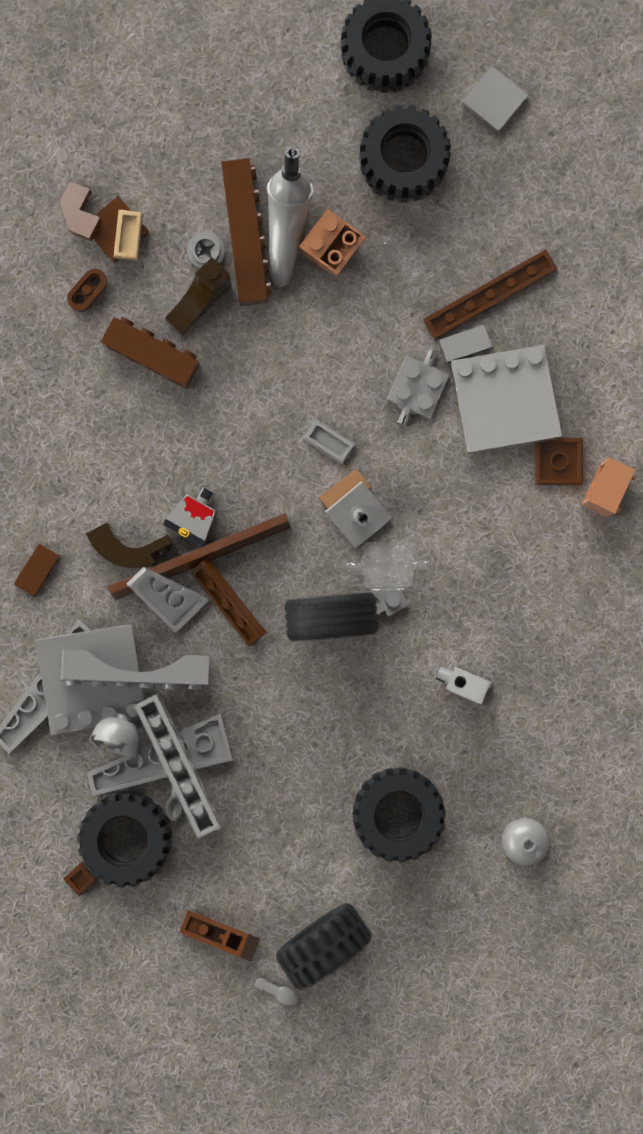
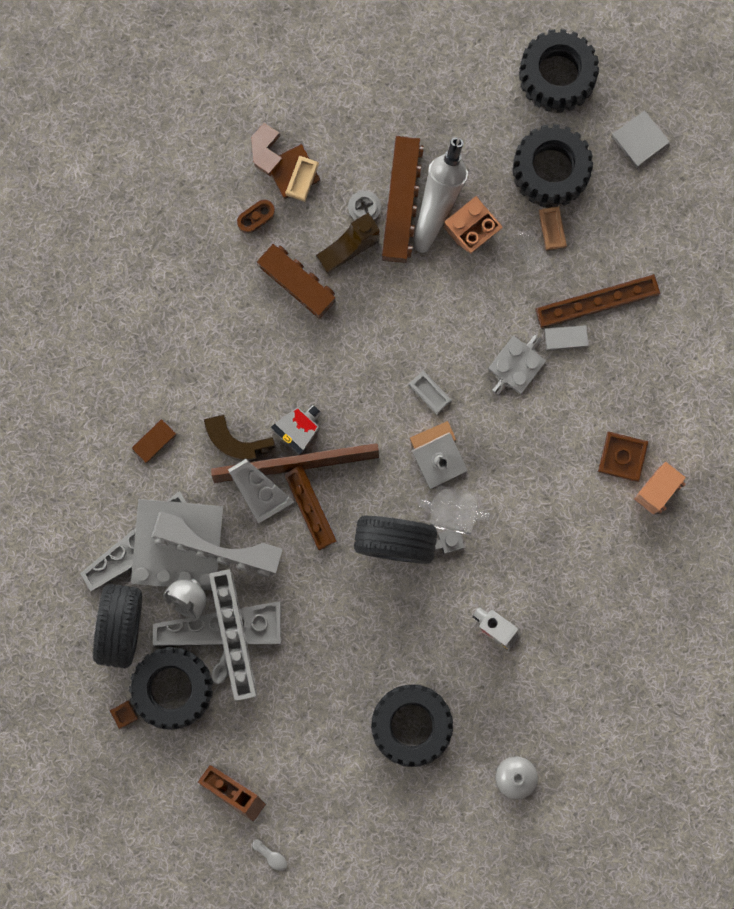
camera: 20 degrees right, 5 degrees down
(47, 787) = (117, 626): none -> black tyre
(323, 946) = (319, 821): black tyre -> none
(420, 224) = (552, 228): none -> medium nougat tile
(506, 399) = (590, 393): light grey plate -> none

